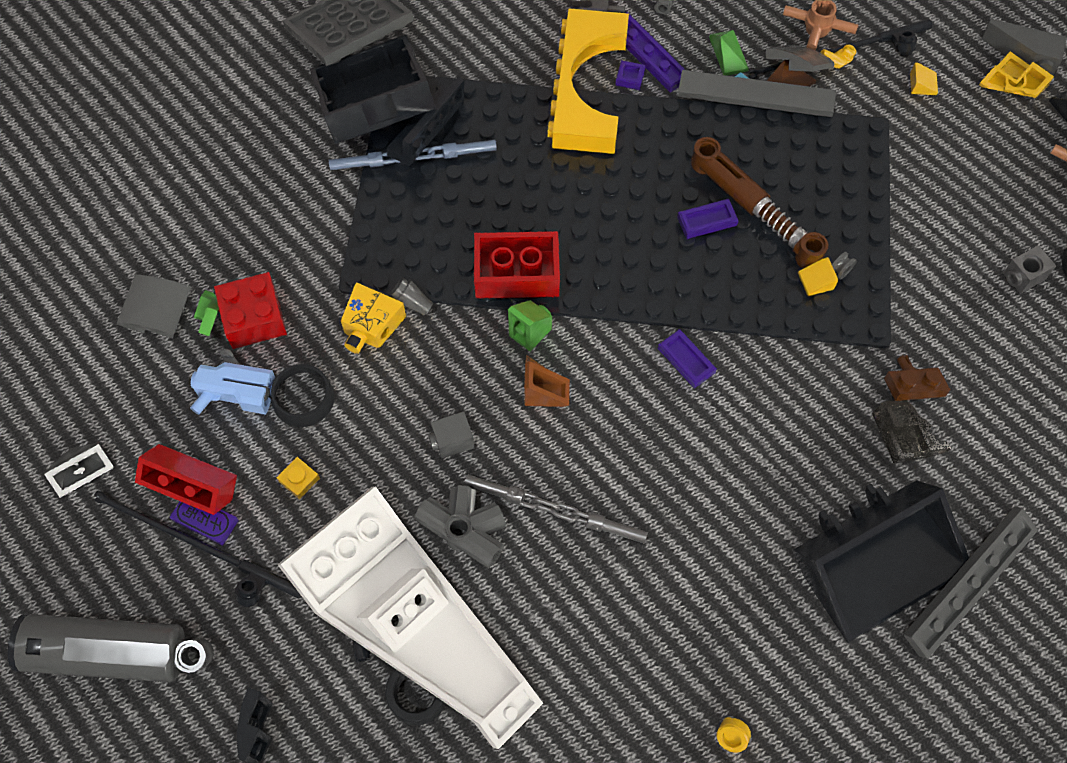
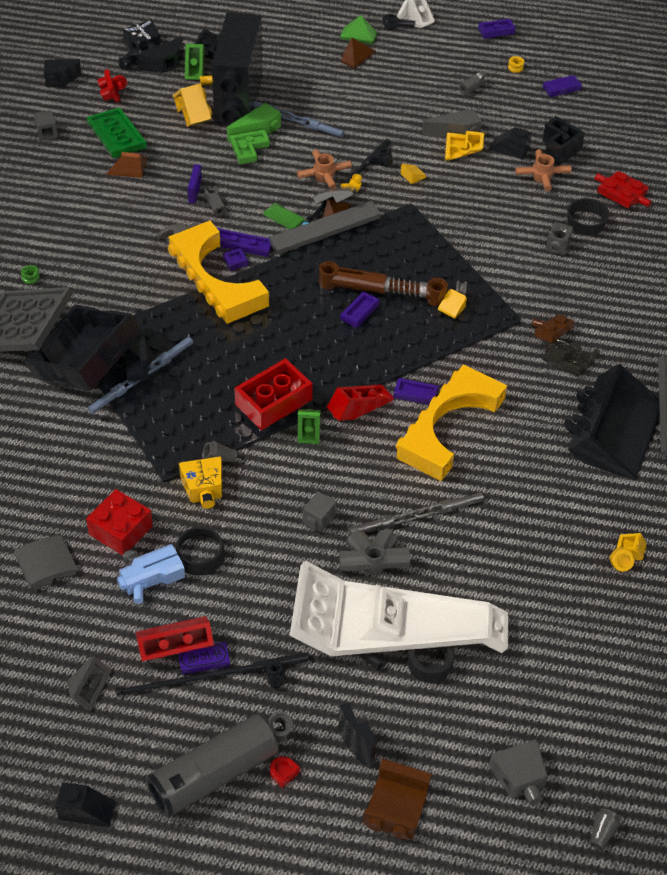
camera: 40 degrees left, 15 degrees down
(168, 703) = (283, 770): none -> red tile
(207, 312) = (91, 541): bright green slope -> none
(298, 478) = (242, 597): yellow plate -> none
(544, 386) = (345, 454): dark orange slope -> none
(607, 329) = (357, 401): none -> red slope
(740, 393) = (465, 389): none -> yellow arch
(765, 724) = (634, 543): none -> yellow slope

